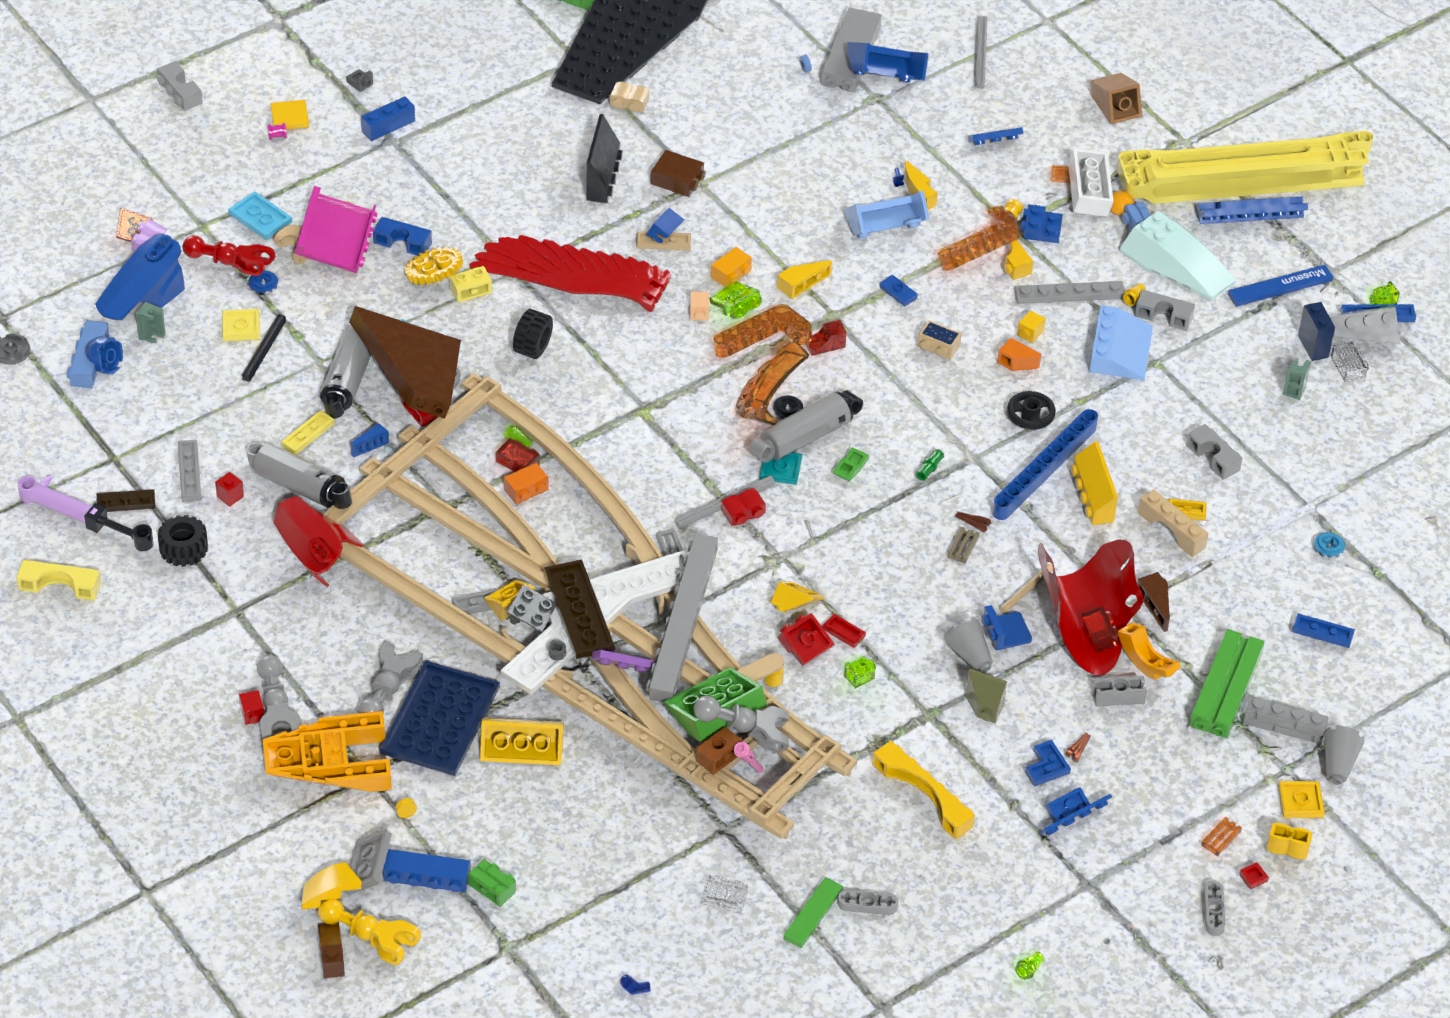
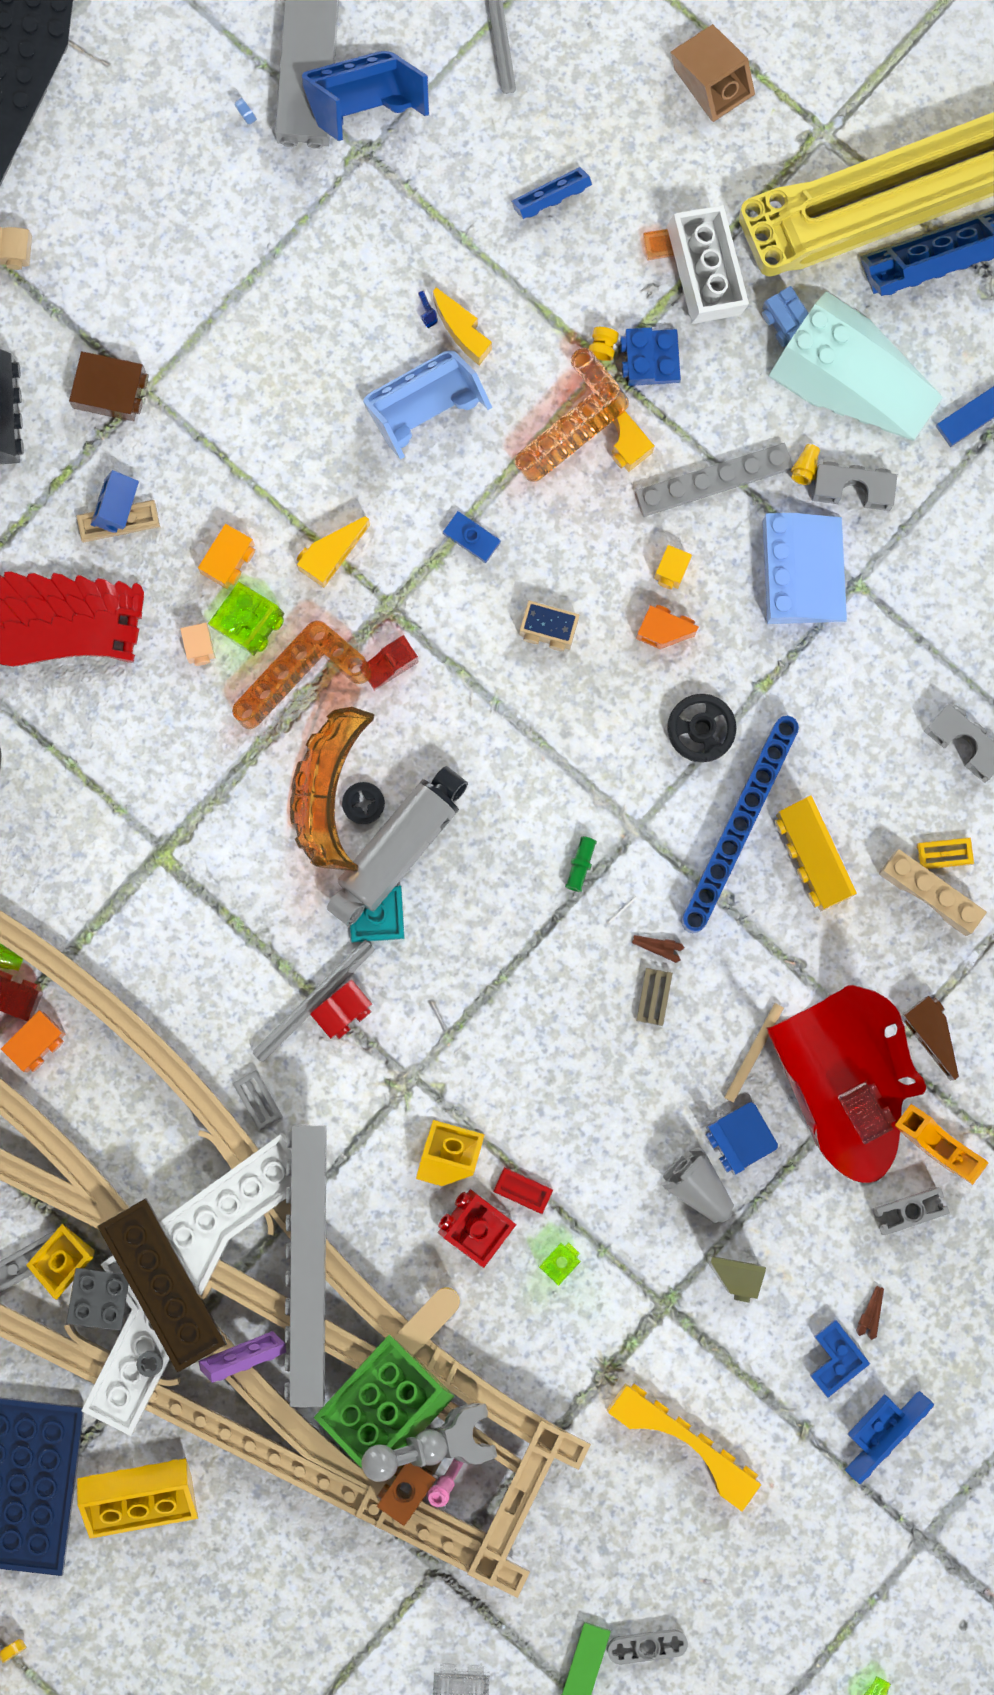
camera: 15 degrees left, 35 degrees up
(851, 465) = (472, 889): bright green slope -> none
(1120, 200) = (758, 286): light orange hair -> none

